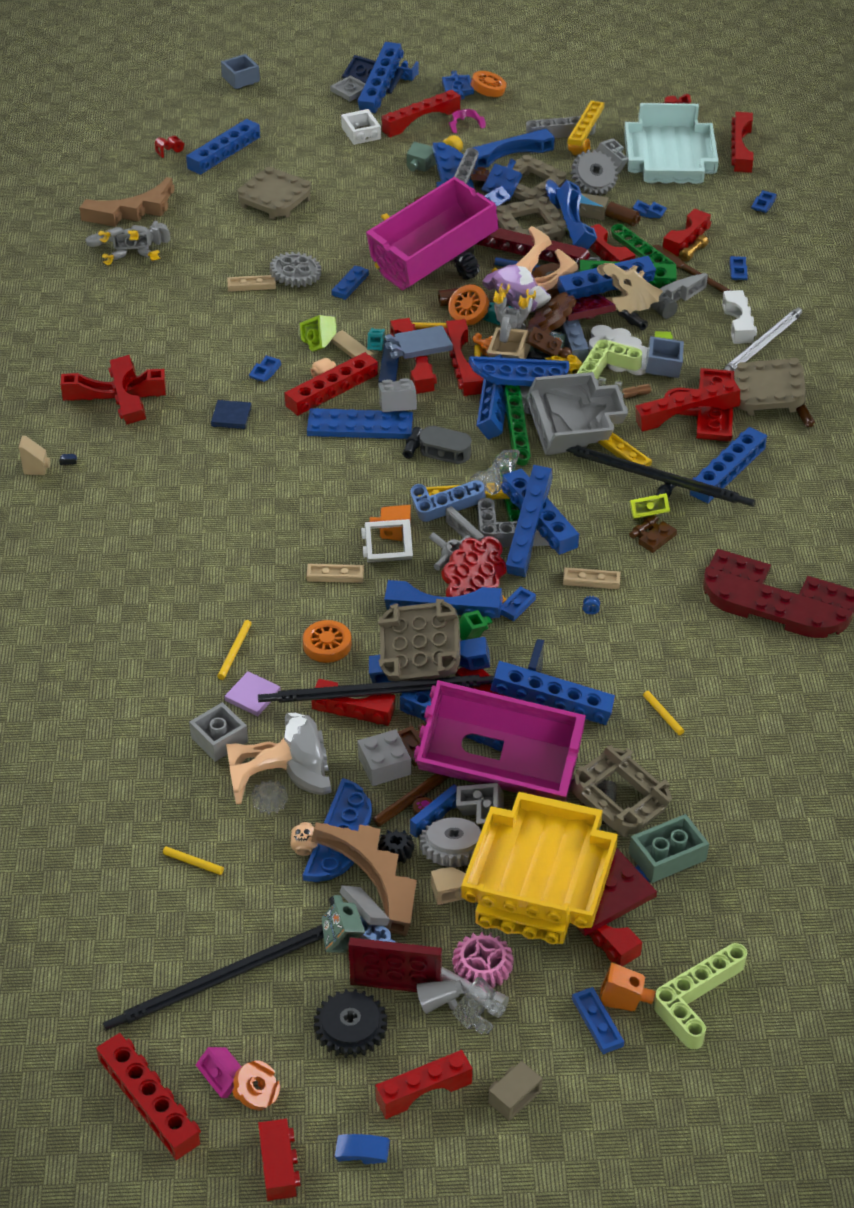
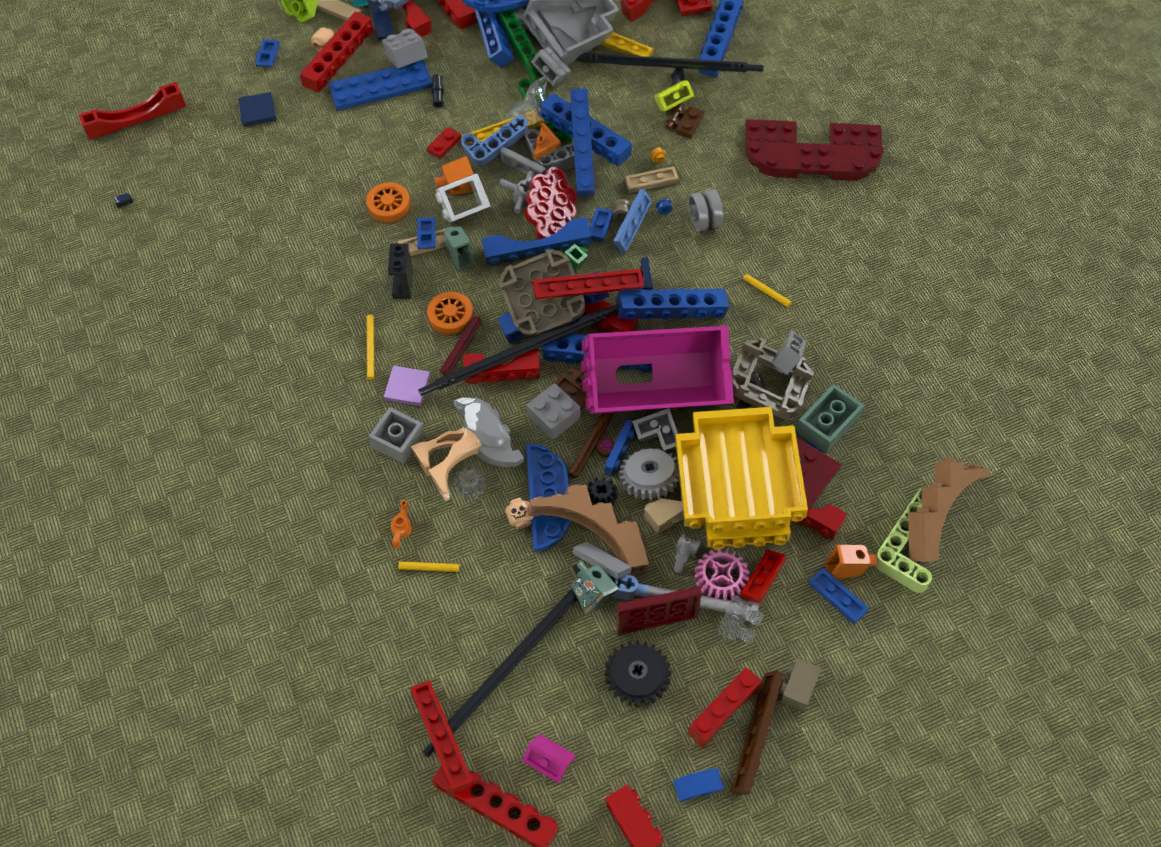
camera: 20 degrees left, 15 degrees up
(33, 457) = (91, 209): tan slope -> none
(124, 373) = (139, 97): red arch -> none
(124, 1011) = (441, 737): none -> red plate
(183, 814) = (401, 525): none -> orange piece
(247, 1093) = (578, 770): orange plate -> none
(297, 580) = (401, 269): none -> black panel
(315, 527) = (388, 207): none -> orange wheel
(326, 671) = (461, 346): none -> dark red axle
(338, 563) = (426, 233): none -> blue slope
(362, 578) = (457, 239): none -> sand green torso
(395, 490) = (444, 143): none -> red plate
(439, 993) = (701, 620): light grey piece -> none
(441, 1126) = (757, 732): none -> reddish brown plate
(445, 444) = (468, 85): dark grey brick -> none
(455, 923) = (685, 548): none -> light grey piece
(466, 643) = (587, 284): none -> red plate
(494, 513) = (546, 142): none -> orange tile
(525, 974) = (763, 576): none -> red plate
(535, 447) = (550, 66): none -> light grey brick
(546, 596) = (621, 209): none -> dark tan wheel
(551, 609) = (632, 221): none -> medium blue tile
(608, 557) = (657, 155): none -> light orange plate
(628, 617) = (705, 210): none -> light grey wheel
(652, 771) = (789, 353): none -> light grey slope
(724, 974) = (937, 499): none -> medium nougat arch

